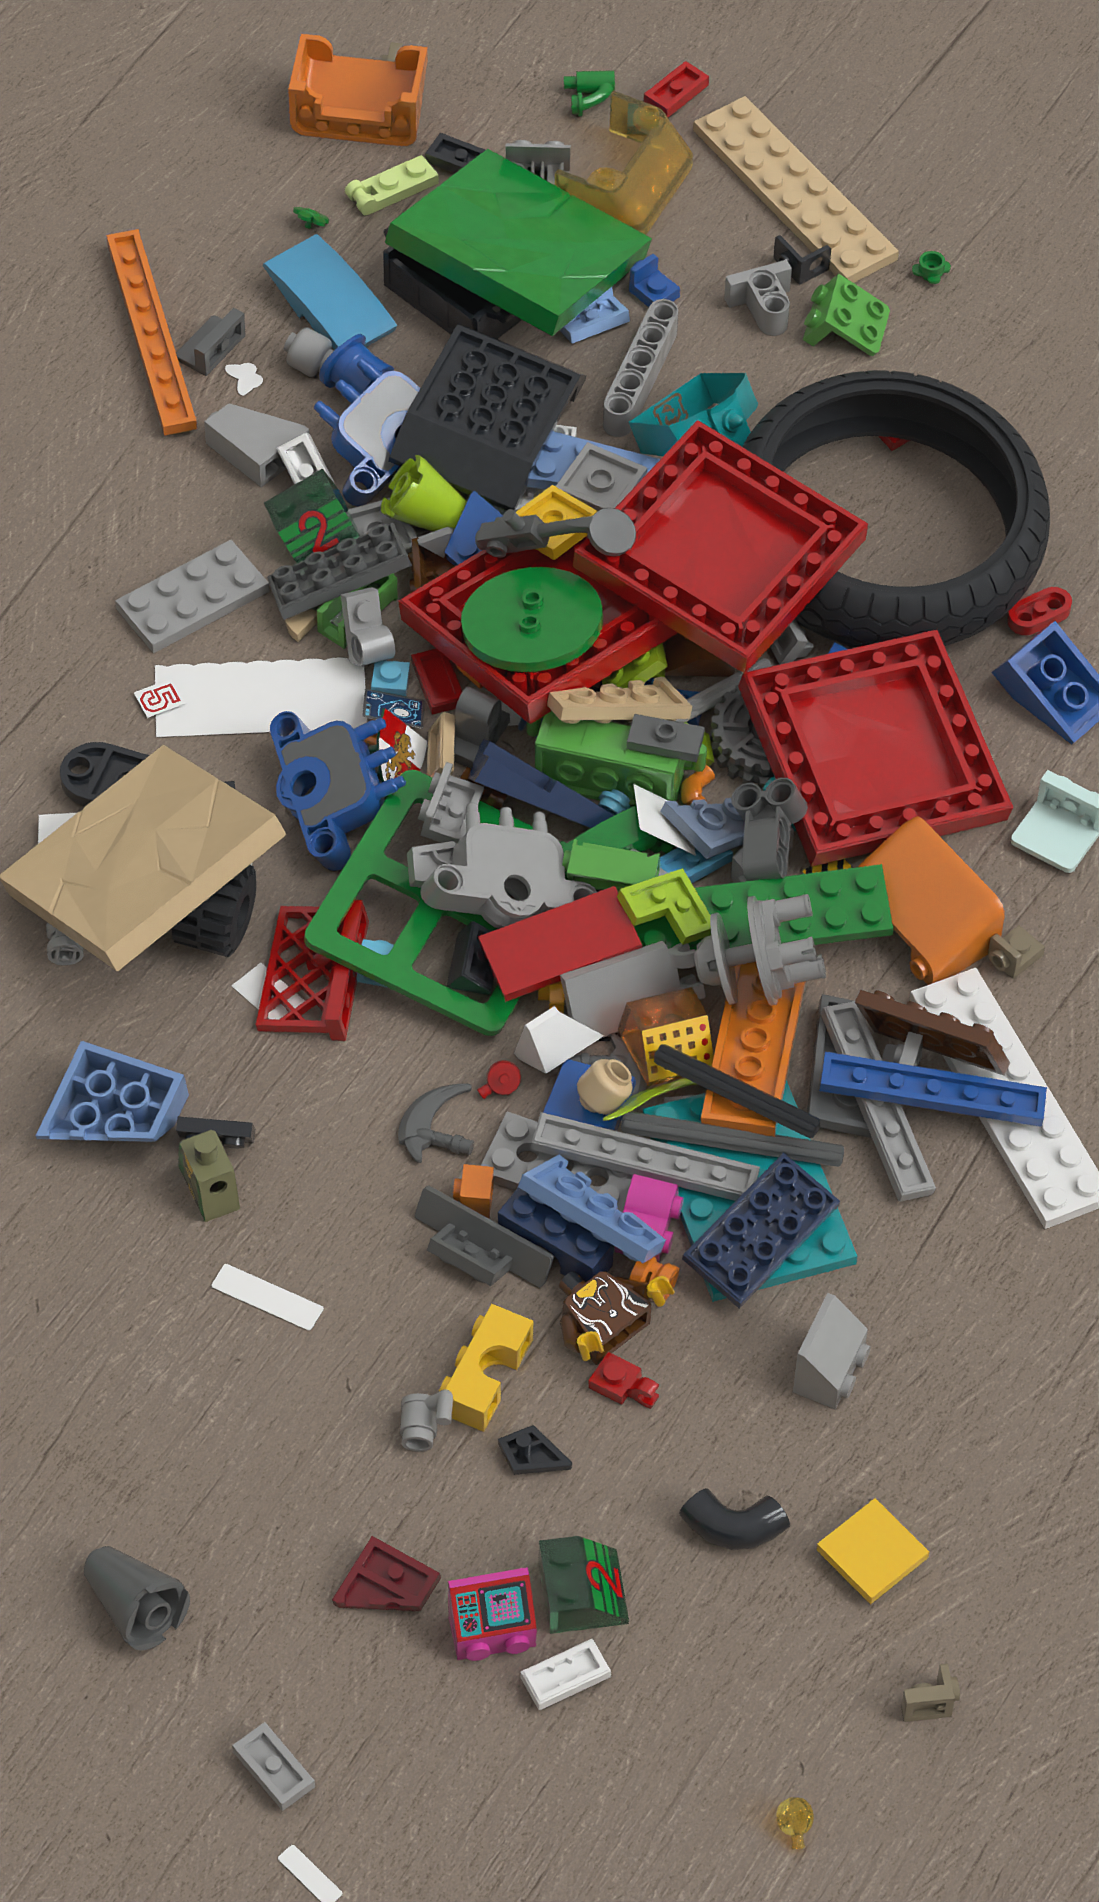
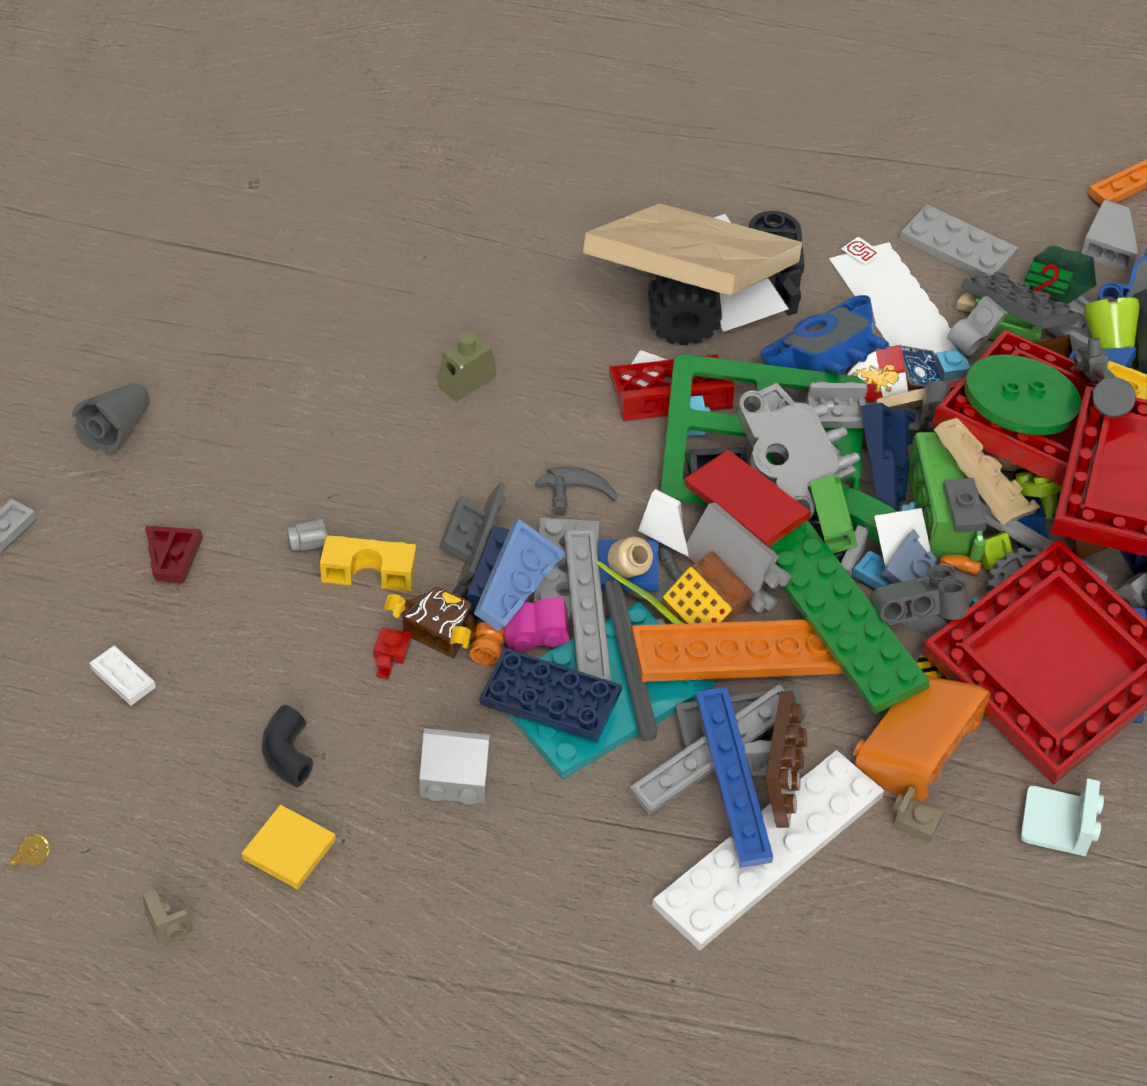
camera: 70 degrees right, 5 degrees down
(113, 1099) = (502, 303): medium blue wedge -> none
(231, 1133) = (505, 360): black plate -> none
(267, 1297) = (389, 434): white sticker -> none
(302, 458) = (1109, 263): white slope -> none
(475, 1188) = (520, 510): orange plate -> none
(492, 1614) = (150, 612): slope -> none
(501, 1078) = (626, 511): red piece -> none
(532, 1452) = (308, 610): black piece -> none
(581, 1584) = (199, 663): clear green slope -> none
(671, 897) = (816, 545): lime plate -> none
(737, 1091) = (663, 640): black axle -> none
(778, 963) = (788, 608): light grey piece -> none

